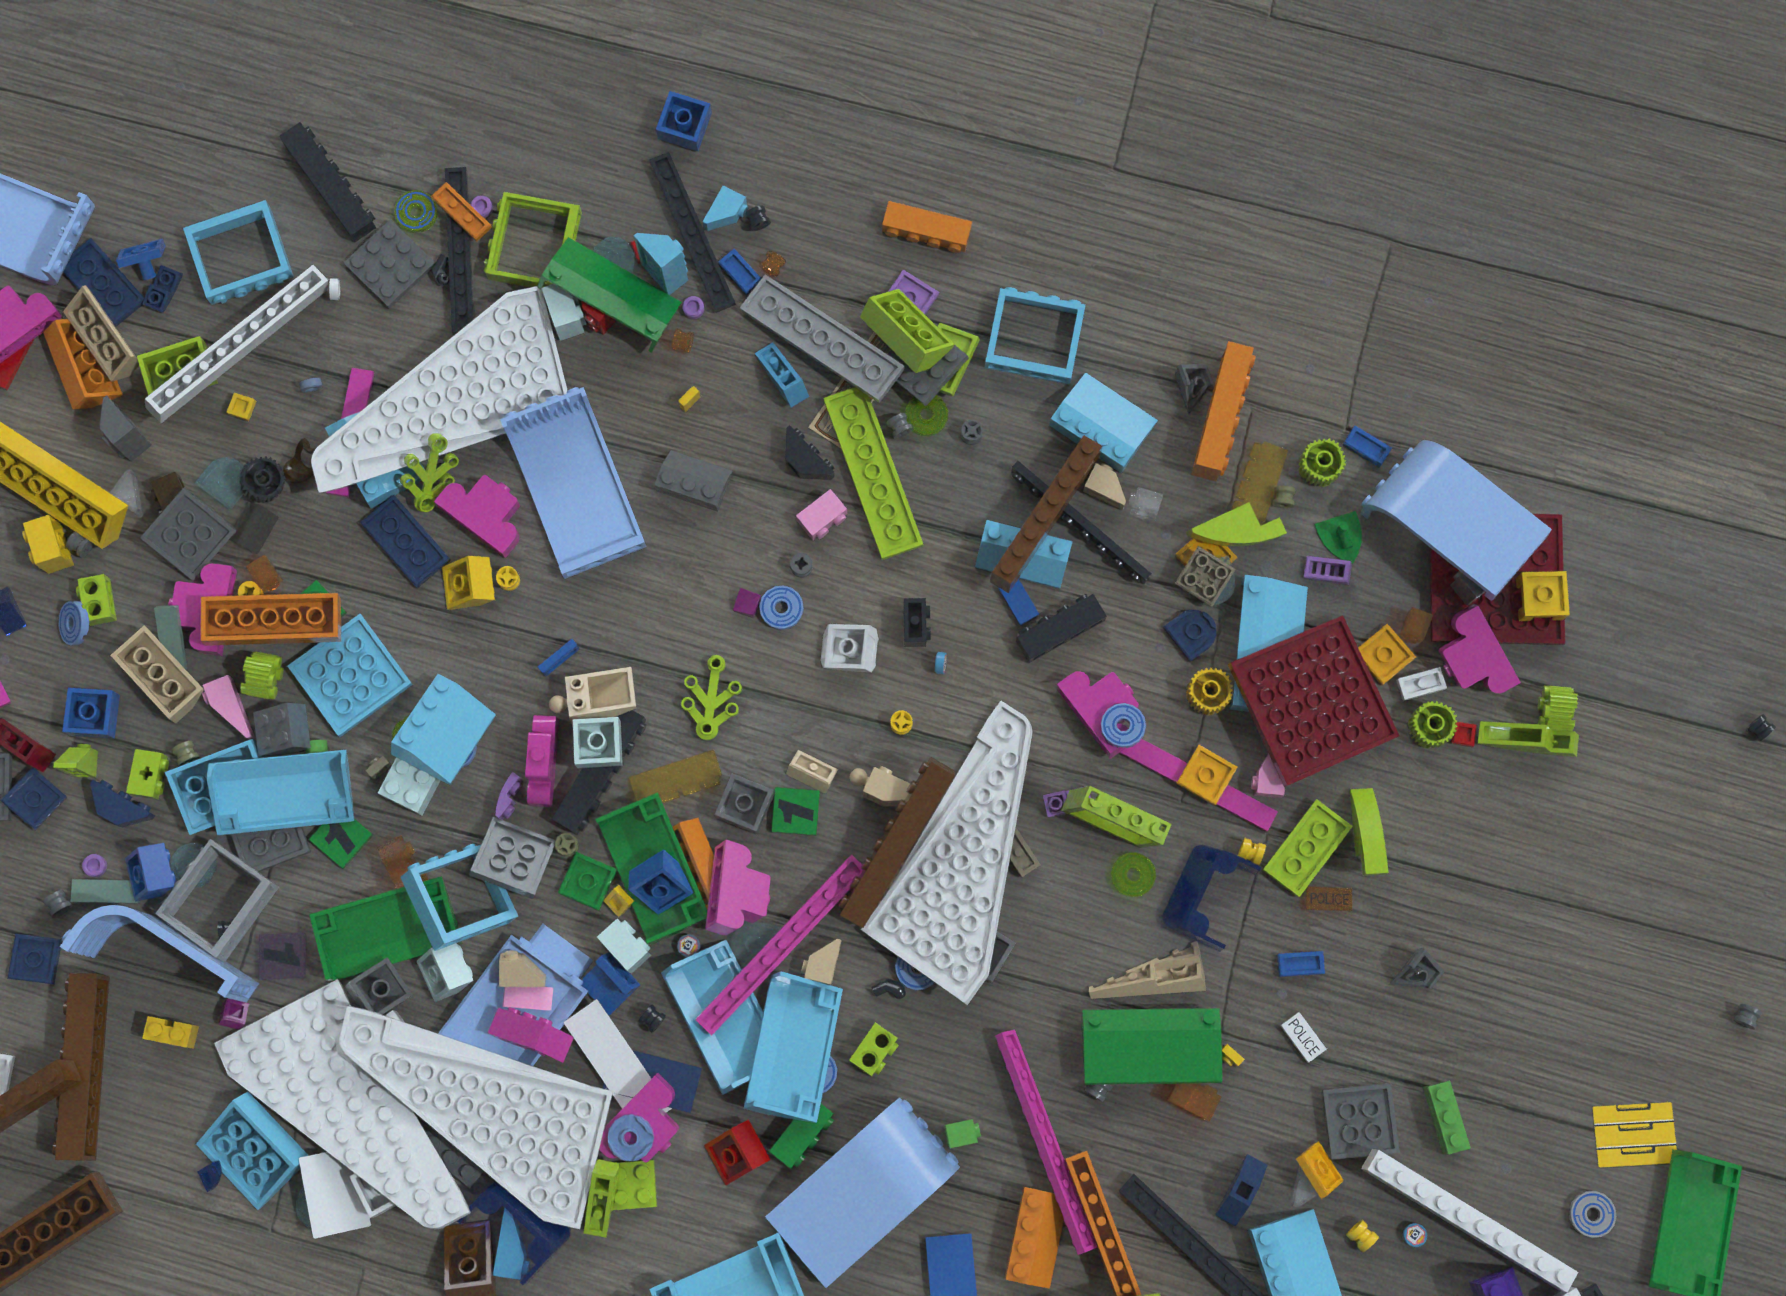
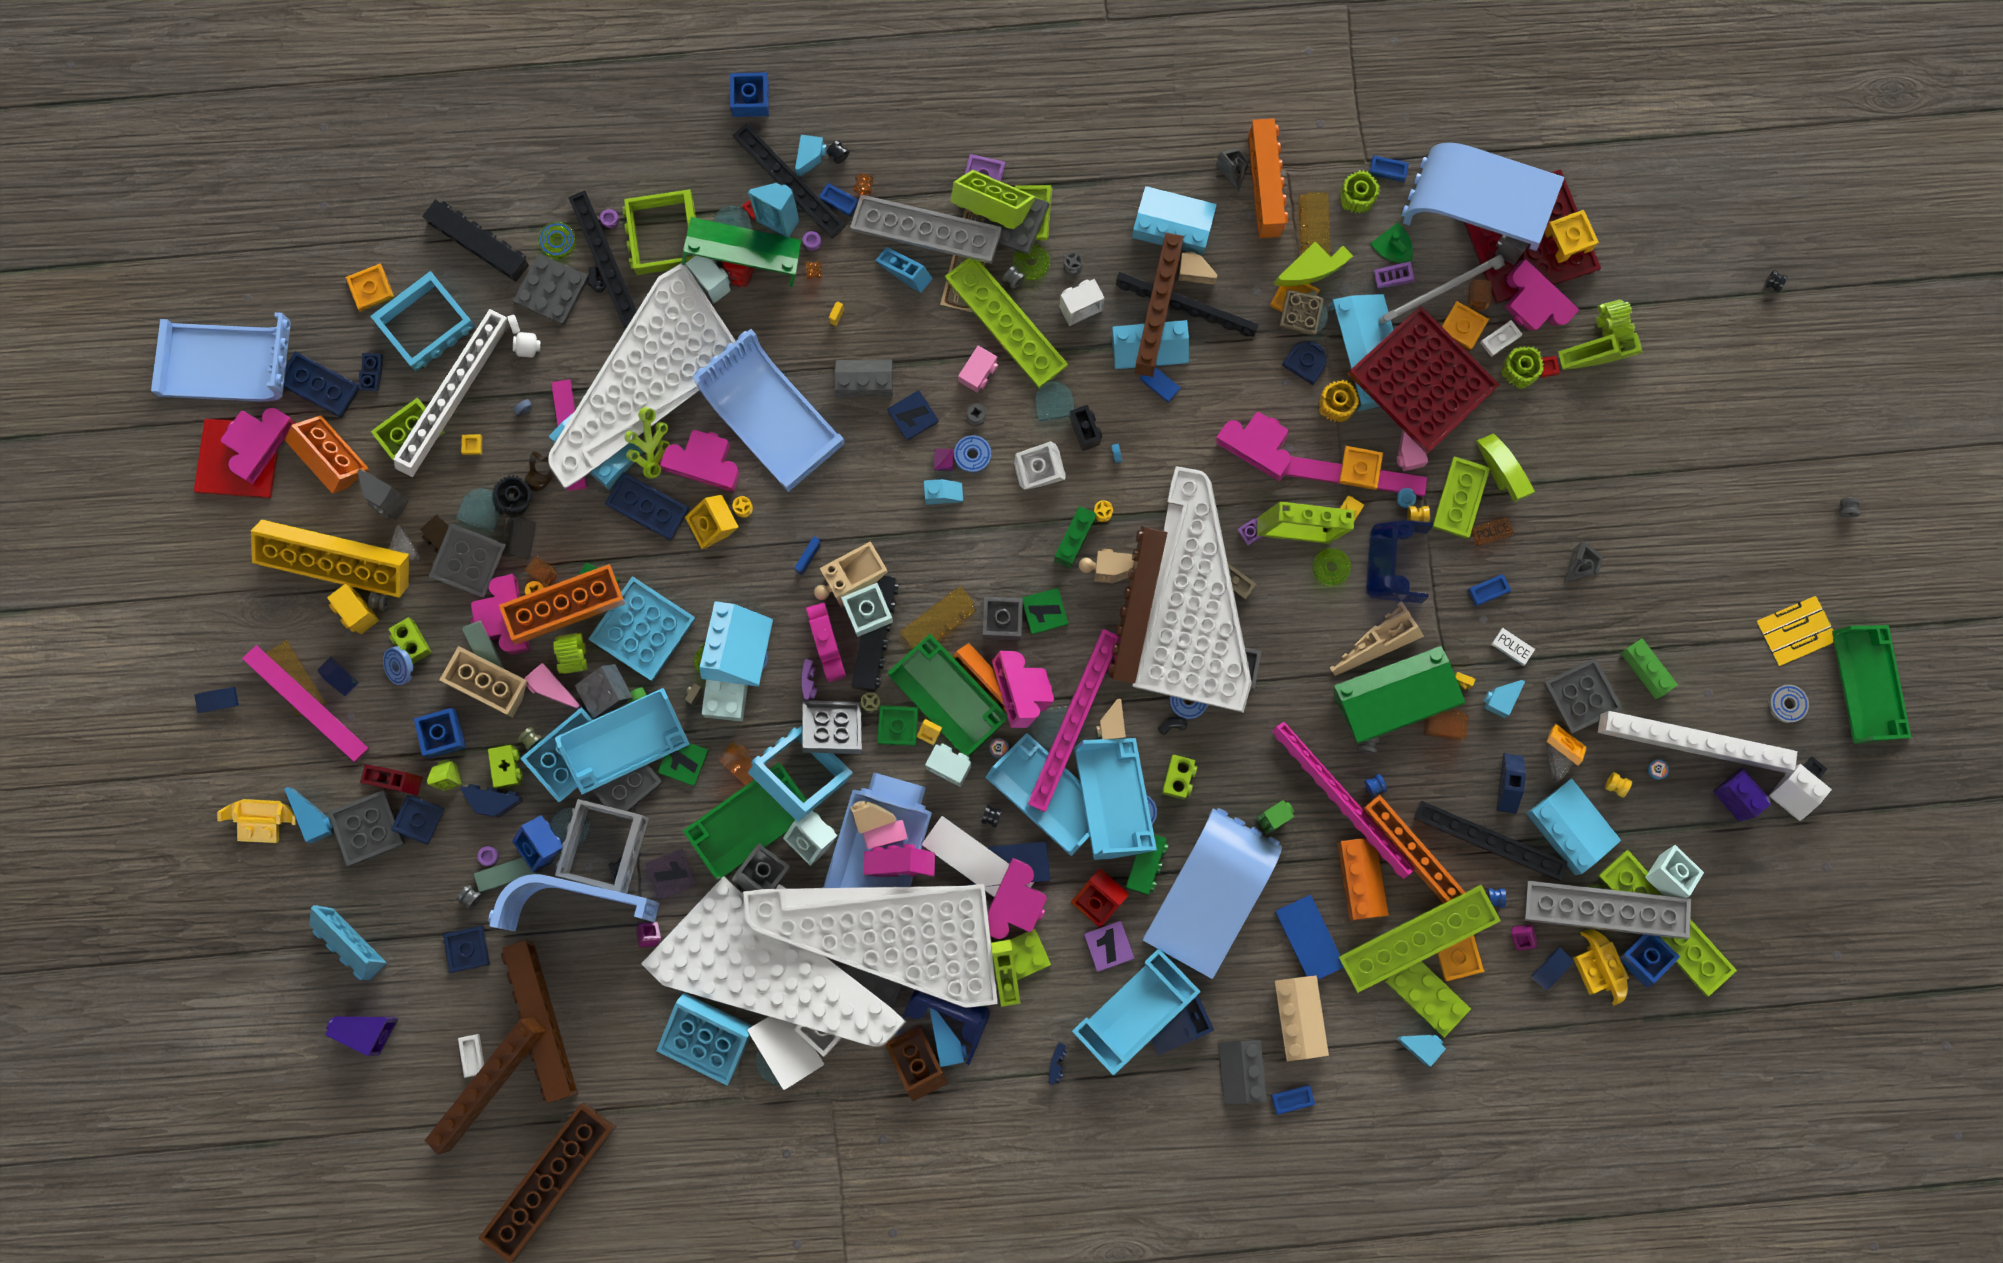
camera: 20 degrees left, 0 degrees up
(101, 335) = (334, 425): tan slope -> none
(142, 255) = (344, 350): blue tile -> none
(161, 1031) = (594, 969): yellow brick -> none
(196, 194) = (370, 287): none -> light orange tile
(210, 1175) = (678, 1071): clear blue tile -> none
(339, 316) = (526, 345): none -> white head
(461, 211) = (595, 227): orange tile -> none
(609, 983) = (947, 799): blue bracket -> none
(634, 1124) = (1015, 927): medium blue tile -> none
(659, 882) = (958, 704): blue slope -> none
(710, 700) = (943, 547): lime plant -> none
(727, 1209) = (1109, 946): none -> medium lavender tile
(731, 541) = (912, 415): none -> dark blue tile
(732, 638) = (942, 492): none -> medium azure slope
(804, 458) = (947, 329): black slope -> none
(811, 771) = (1045, 575): tan slope -> none
(859, 740) = (1075, 537): none -> green brick
(893, 580) = (1053, 401): none -> clear light blue tile
(926, 226) = (976, 113): orange brick -> none
(963, 479) = (1081, 301): none -> white brick
(1029, 368) = (1099, 197): medium azure window -> none
(1060, 628) = (1202, 392): black brick -> none
(1089, 1138) = (1375, 785): none -> blue wheel
(1119, 713) = (1287, 440): medium blue tile -> none
(1145, 503) = (1232, 272): clear brick -> none
(1179, 816) = (1352, 504): none -> yellow plate
(1245, 826) = (1406, 497): none -> dark azure tile
(1269, 1092) = (1503, 698): none -> medium azure slope
(1284, 496) = (1339, 229): olive wheel -> none
(1446, 596) = (1496, 262): none -> light grey hinge

